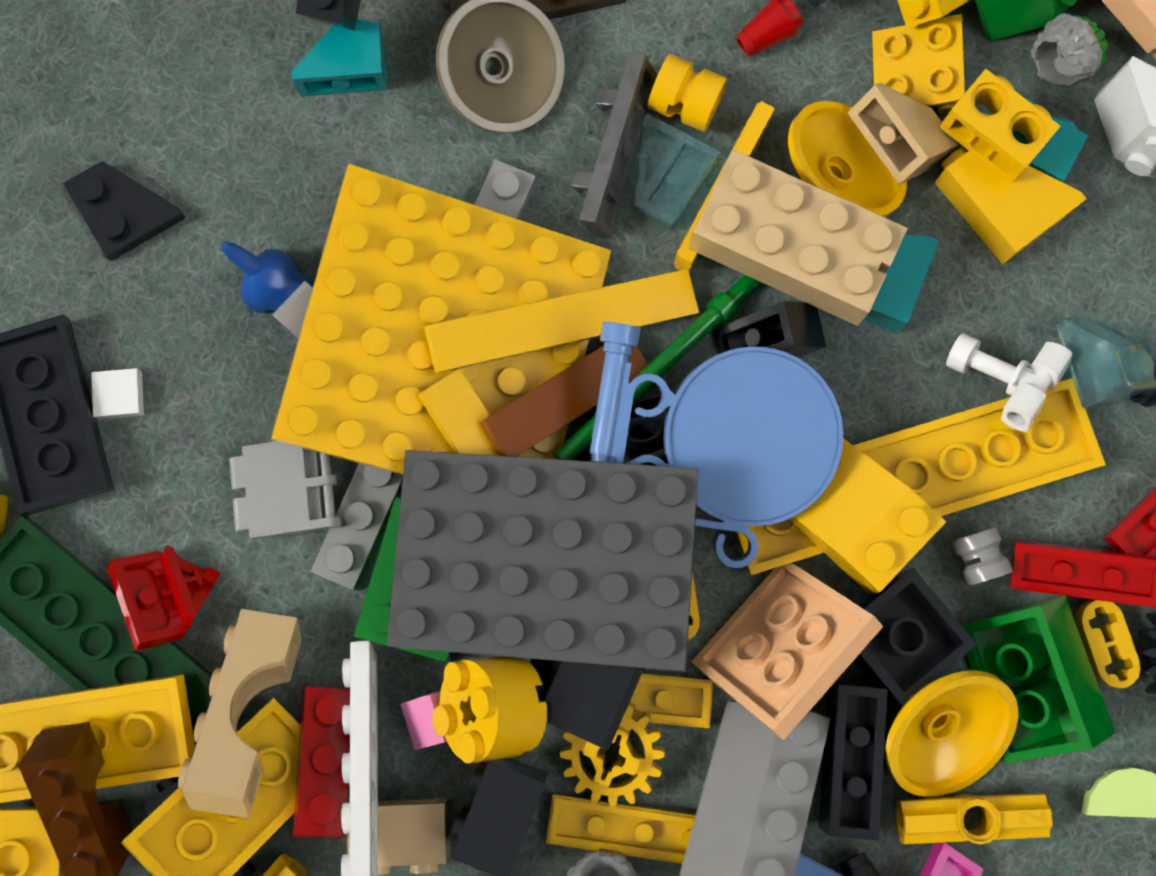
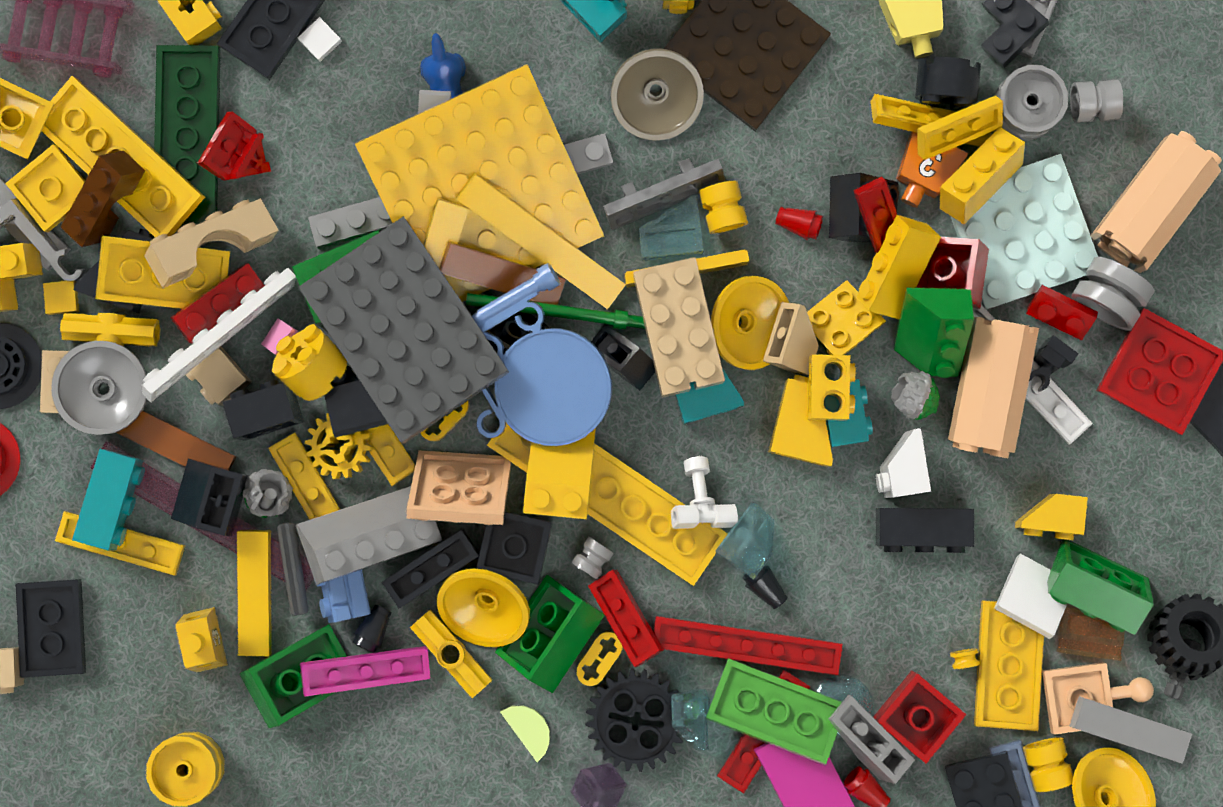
camera: 50 degrees right, 5 degrees up
(282, 490) = (336, 169): light grey plate -> none

